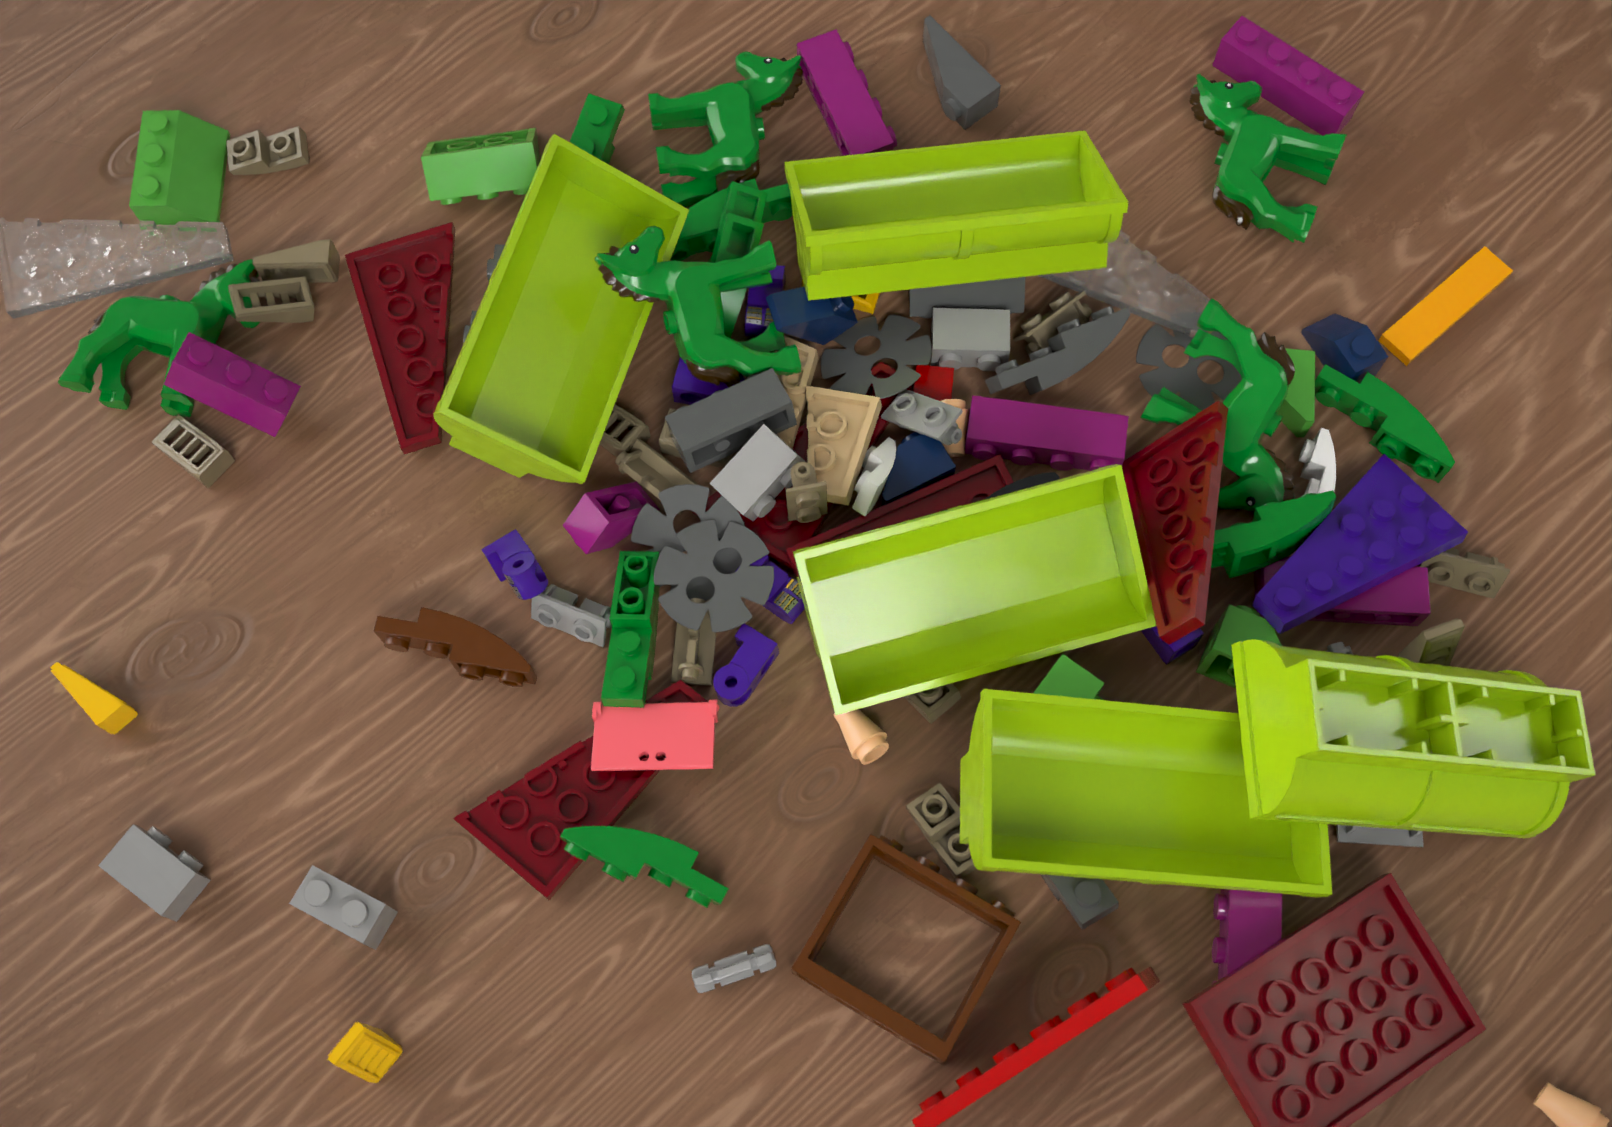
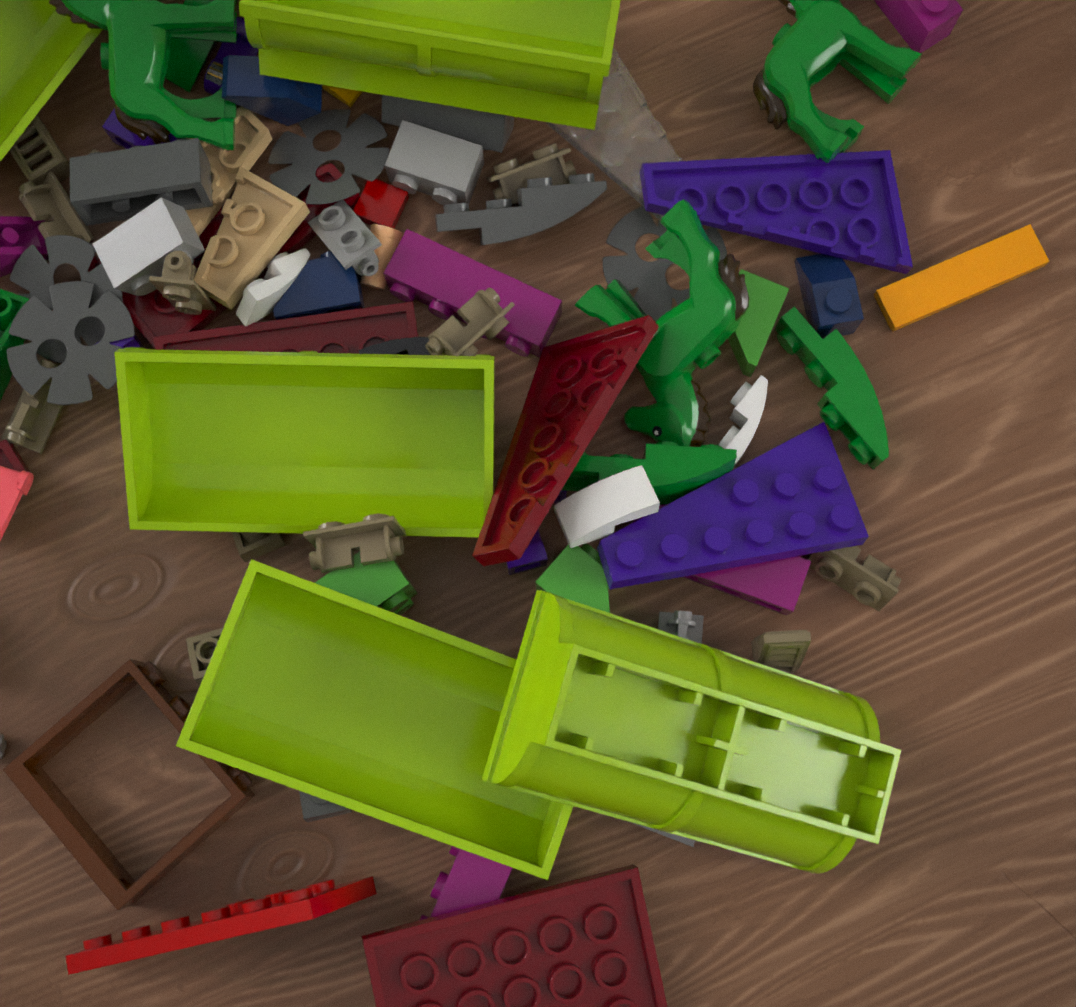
camera: 20 degrees right, 10 degrees up
(747, 668) = (77, 447): dark purple leg -> none
(862, 736) = (168, 557): light nougat cone -> none
(1028, 668) = (376, 538): none -> dark tan hinge
(1076, 445) = (483, 318): none -> dark tan hinge
(1249, 563) = (601, 506): none -> white slope
(1287, 280) = (793, 200): none -> dark purple wing

